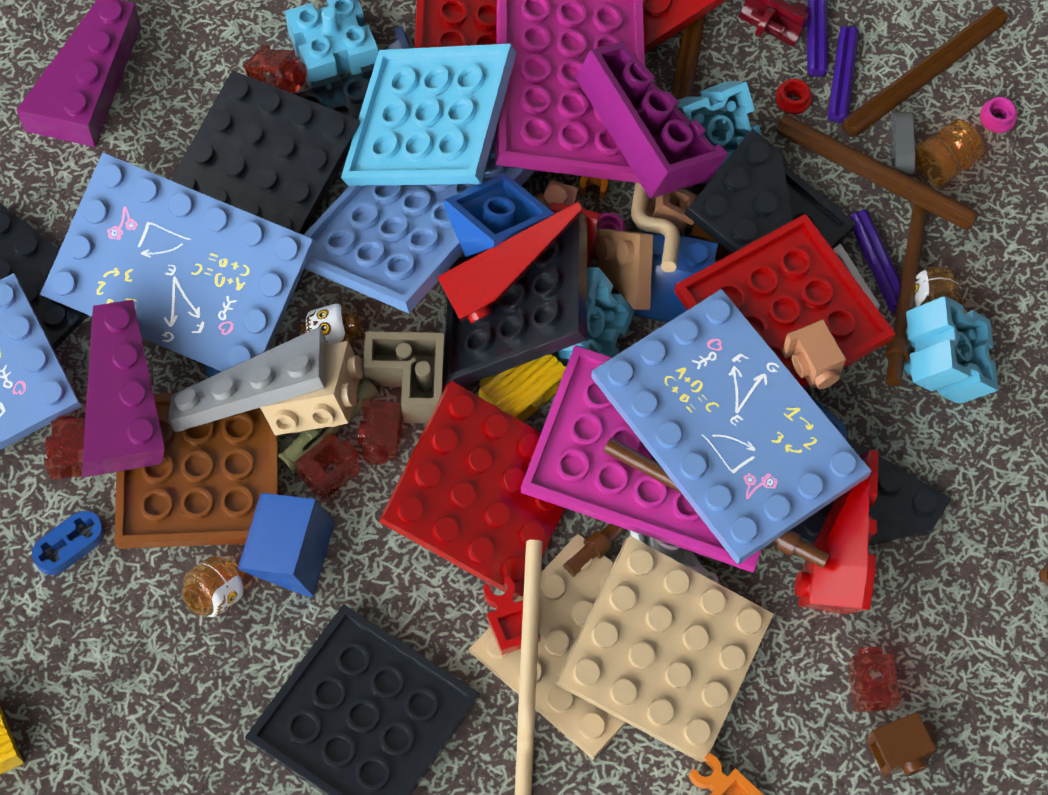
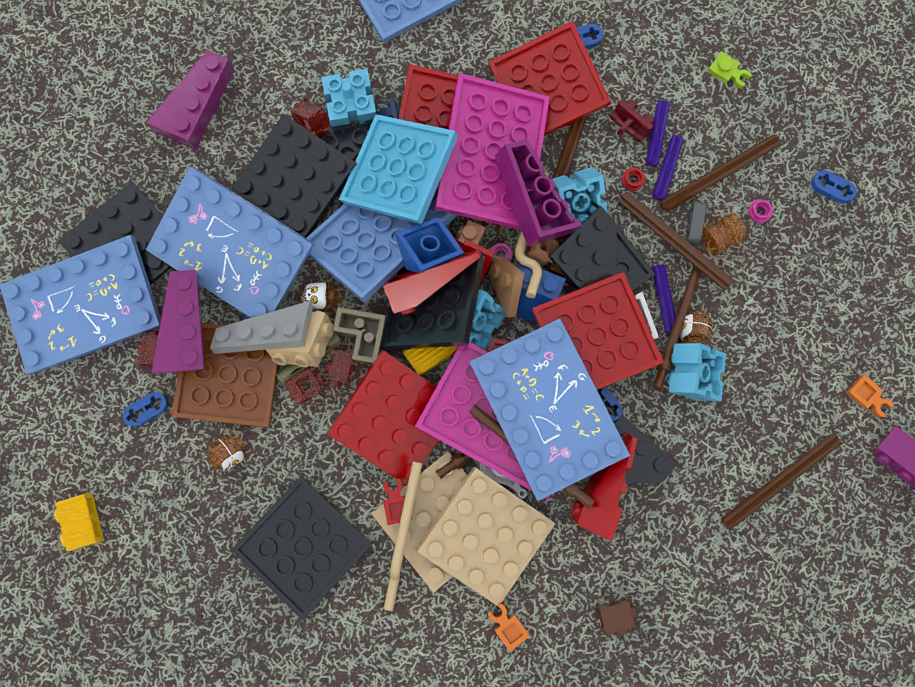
camera: 10 degrees right, 15 degrees up
(287, 542) = (272, 433): blue slope -> none
(815, 355) = (610, 374): nougat brick -> none
(870, 693) = (604, 583): clear red brick -> none

